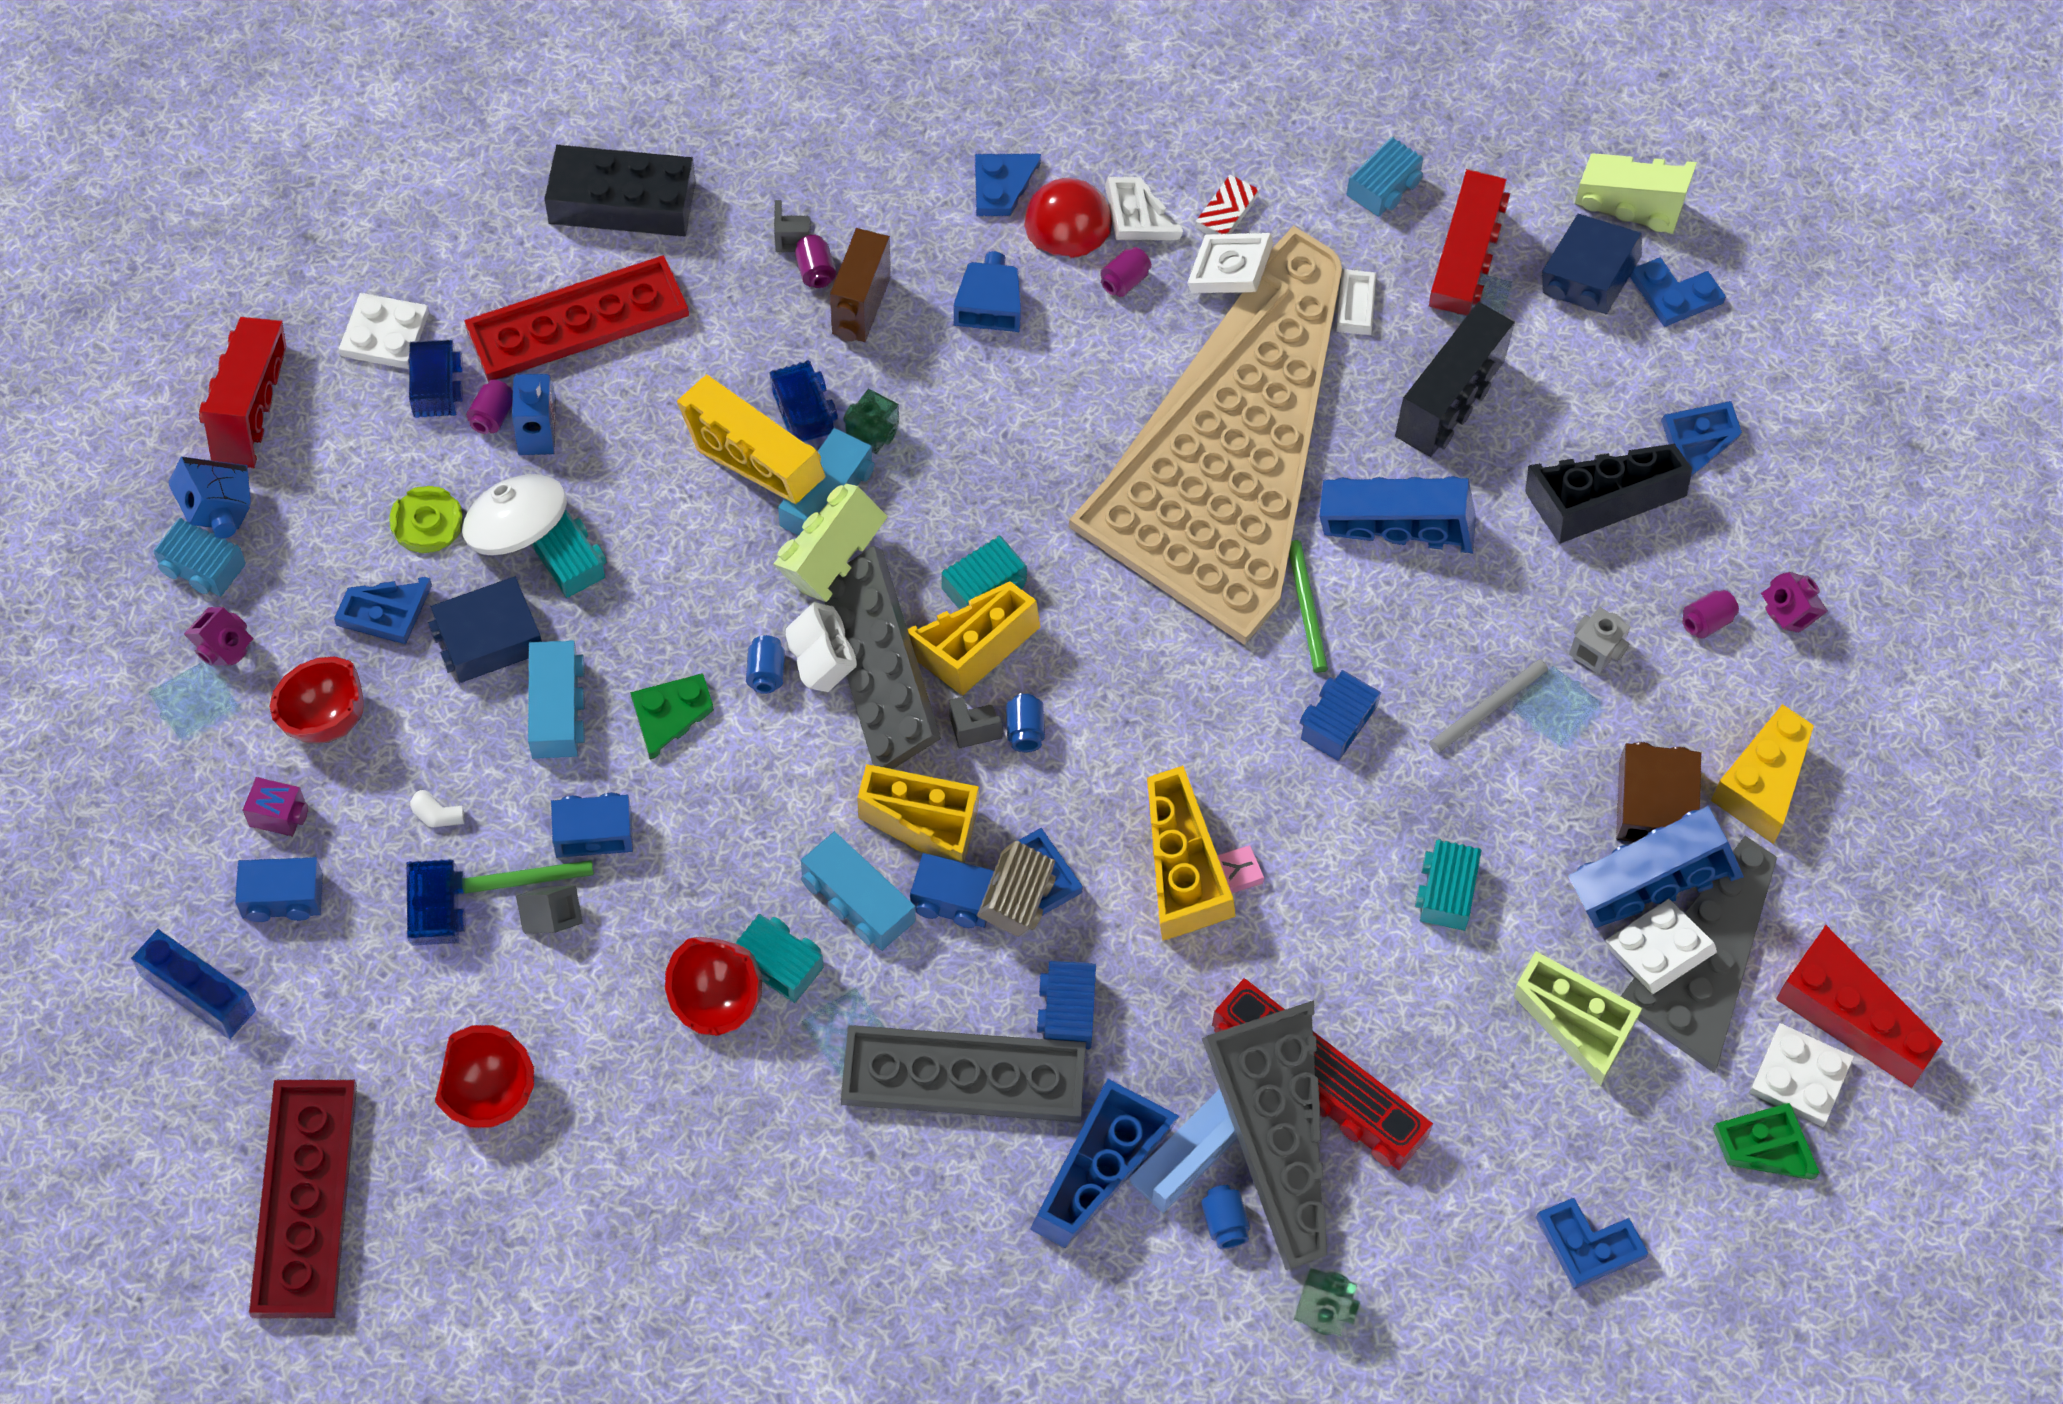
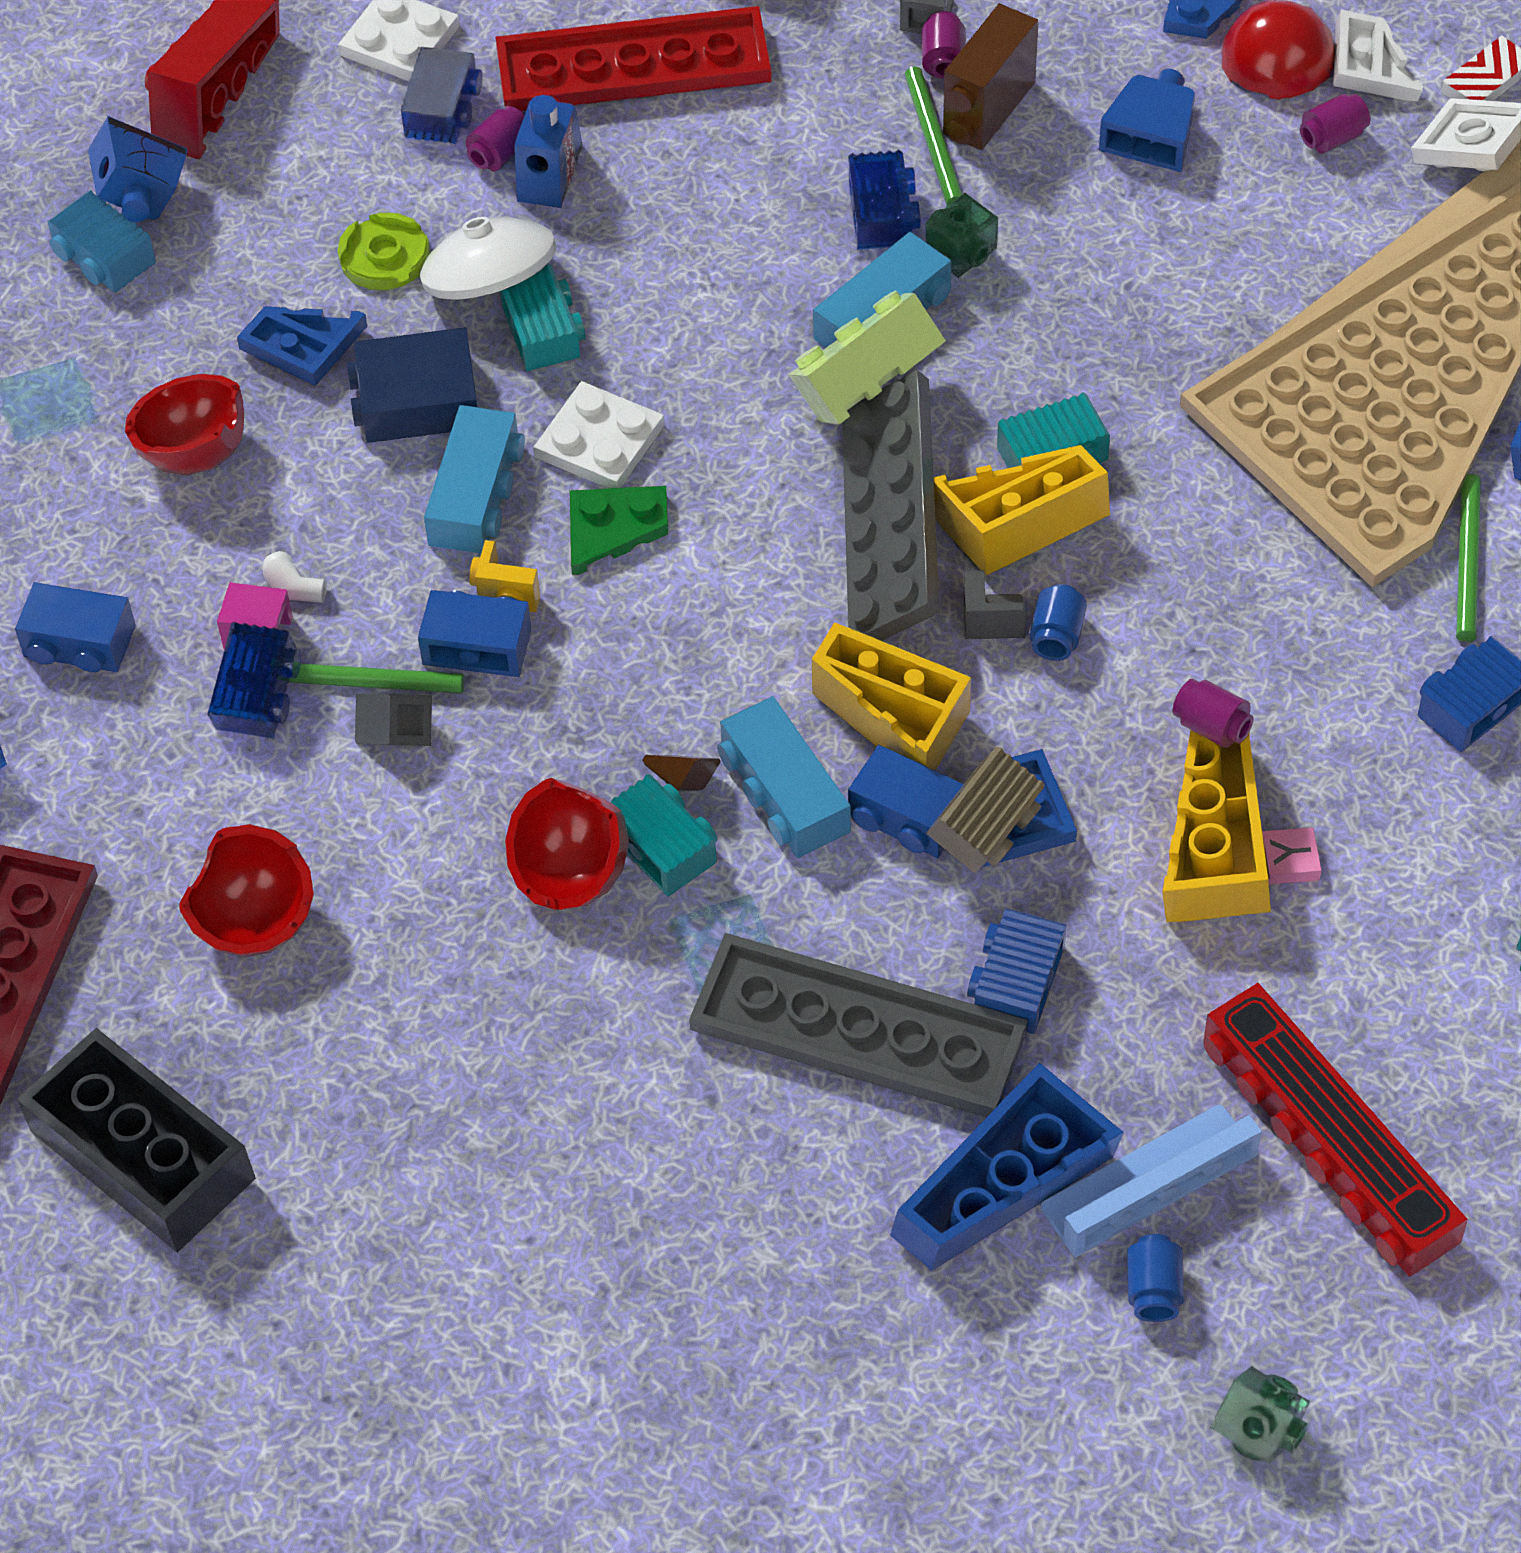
camera: 20 degrees right, 5 degrees down
(219, 637) = (95, 331): magenta brick -> none
(275, 807) = (99, 534): magenta brick -> none
(416, 844) = (253, 606): none -> dark pink panel
(454, 1290) = (137, 1139): none -> black brick
(601, 780) = (503, 580): none -> yellow bracket
(639, 641) = (599, 436): none -> white plate
(749, 441) = (797, 224): yellow wedge -> none
(765, 664) = (746, 490): blue brick -> none
(779, 902) = (683, 772): none -> reddish brown slope
(820, 647) = (820, 481): white brick -> none
(826, 339) = (933, 134): none -> bright green bar
(1164, 779) = (1213, 712): none -> magenta brick
(1275, 1111) = (1254, 1150): dark grey wing -> none

